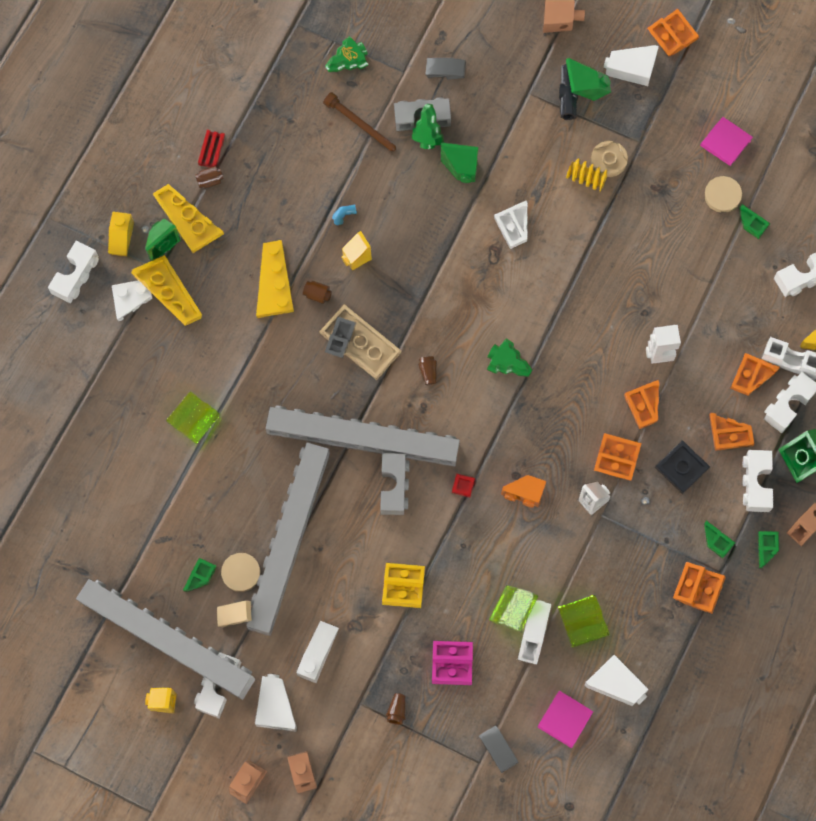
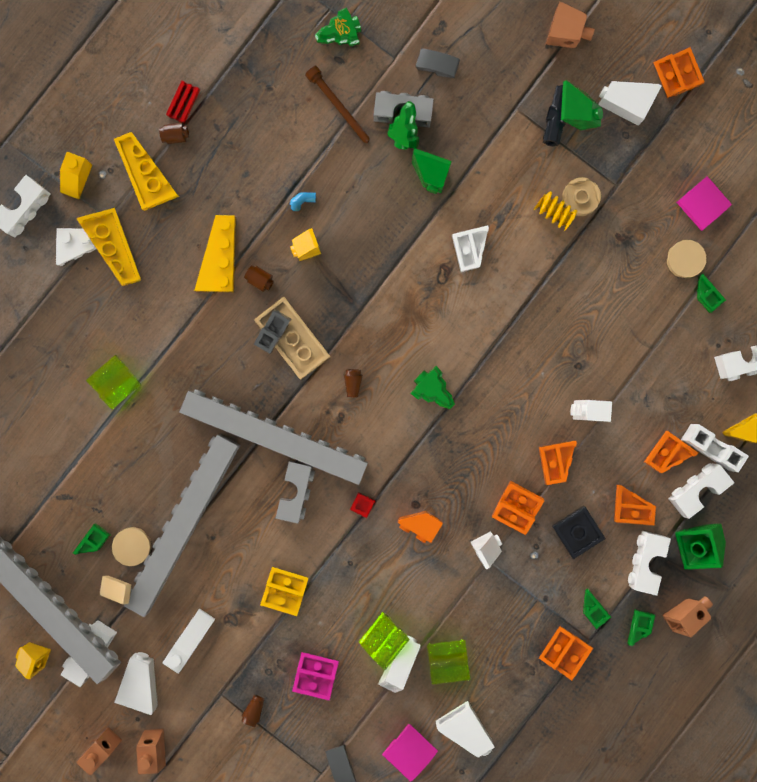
camera: 10 degrees right, 15 degrees up
(161, 239) = (111, 191): green slope -> none

